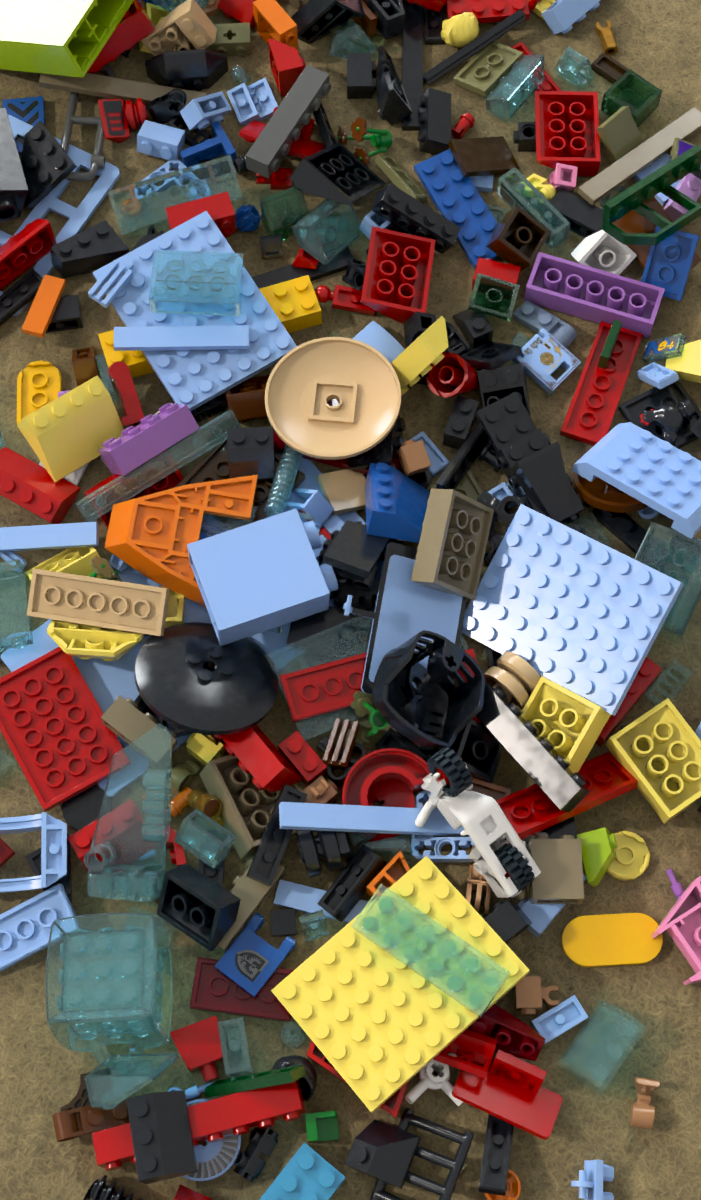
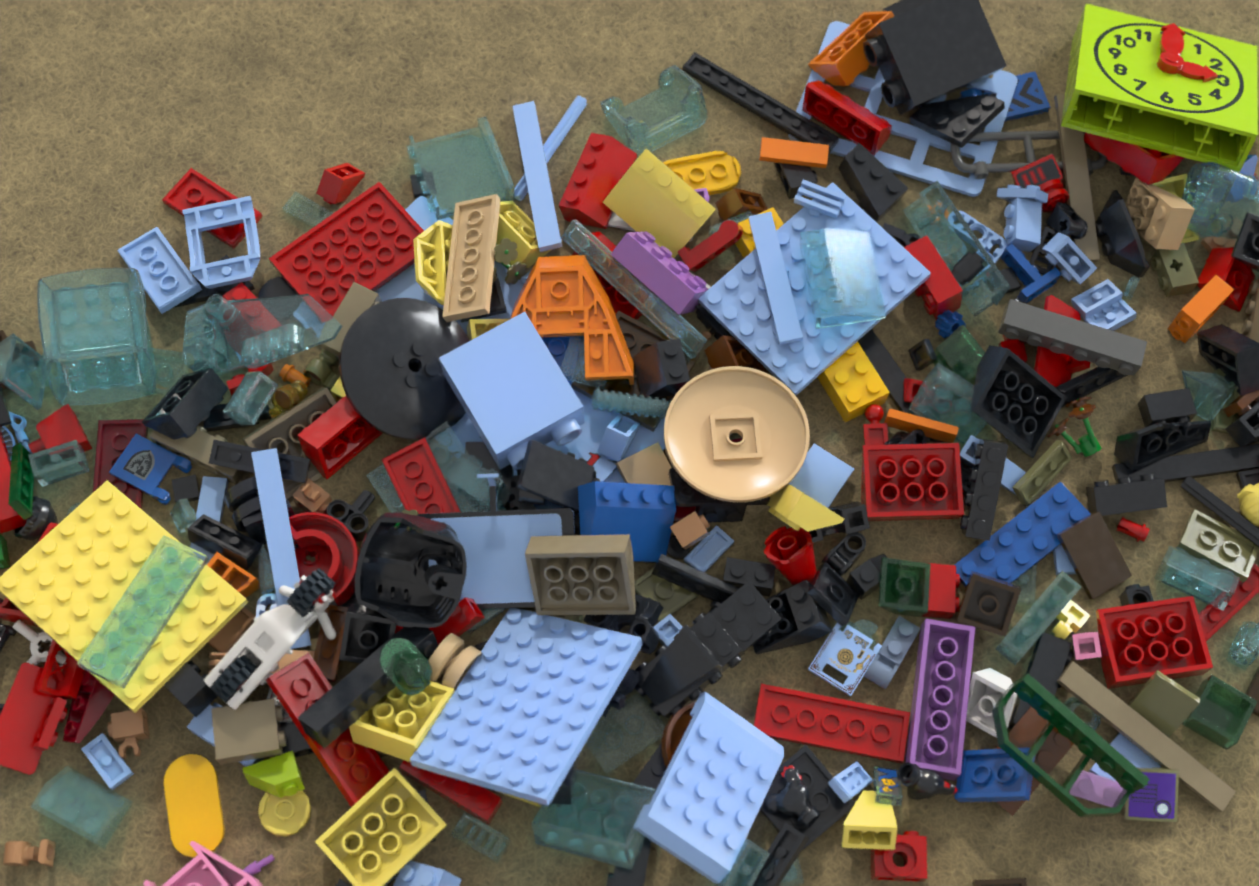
camera: 75 degrees right, 0 degrees up
(128, 140) = (1030, 193): none -> light blue plate
(204, 182) = (968, 267): none -> black brick
(285, 65) = (1150, 325): red slope -> none
(302, 758) = (347, 477): red brick -> none
(335, 632) = (464, 477): none -> clear light blue brick
(340, 262) = (931, 428): none -> orange tile
(345, 725) = (364, 504): reddish brown tile -> none
(521, 707) = (405, 666): none -> clear green piece
(609, 344) = (876, 721): dark green tile -> none
(667, 318) = (923, 782): none -> black animal

